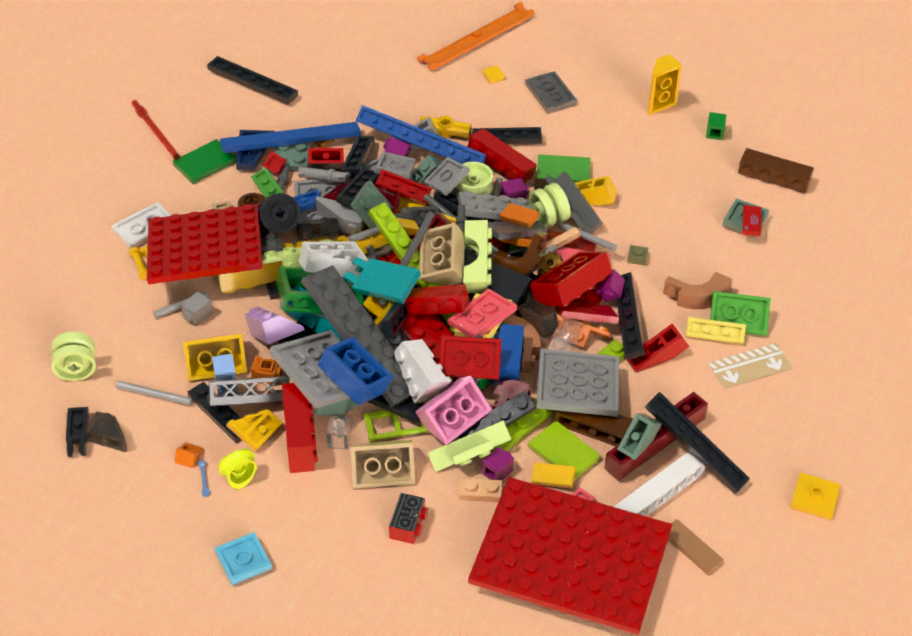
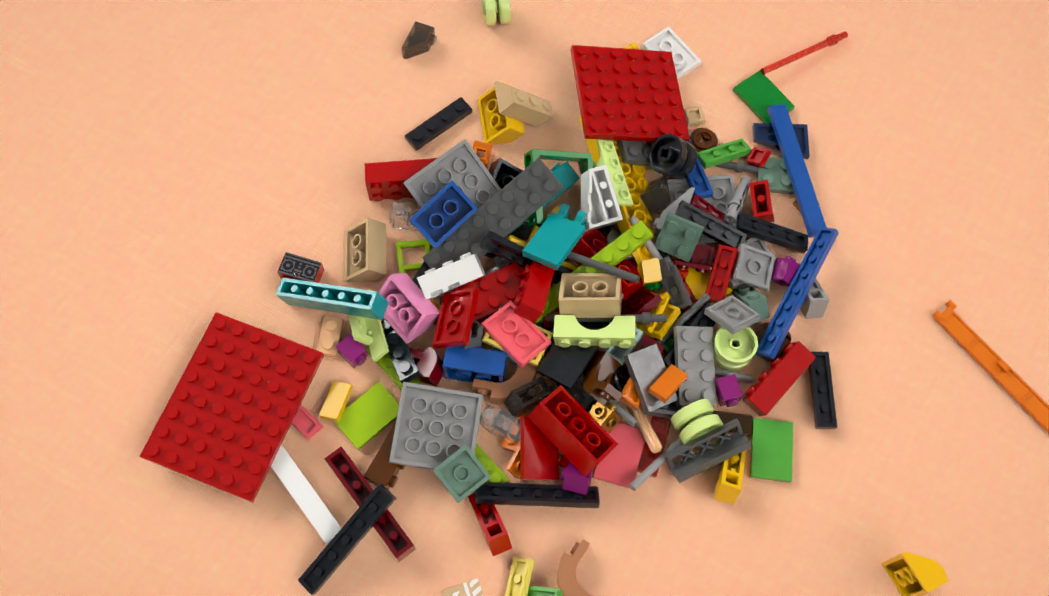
camera: 90 degrees right, 20 degrees up
(76, 429) = (433, 18): black hinge -> none
(154, 393) = (455, 93): light grey bar -> none
(171, 308) = (567, 86): light grey bar -> none
(188, 454) = (394, 102): orange slope -> none
(196, 308) = (559, 97): light grey brick -> none
(205, 491) = (353, 117): medium blue hinge -> none
(209, 325) = (522, 105): none -> tan slope
(224, 370) = (467, 120): light blue piece -> none
(228, 398) = (442, 127): fence -> none
(238, 468) = (363, 136): neon yellow hat -> none
(242, 558) = (277, 145): medium azure plate -> none
(252, 80) = (890, 136): black plate -> none
(255, 428) = (411, 145): yellow wing -> none
(270, 326) = (512, 147): lavender slope -> none
(449, 128) = (829, 334): yellow piece -> none
(450, 467) = (332, 298): none -> teal brick
(493, 74) = (932, 383): yellow tile -> none
(551, 92) = (908, 447): flat silver tile -> none
(621, 357) = (461, 473): none -> sand green plate
(637, 255) = (636, 519): olive plate -> none
(639, 435) = (351, 477): sand green slope -> none
(694, 548) = (241, 526): medium nougat tile -> none

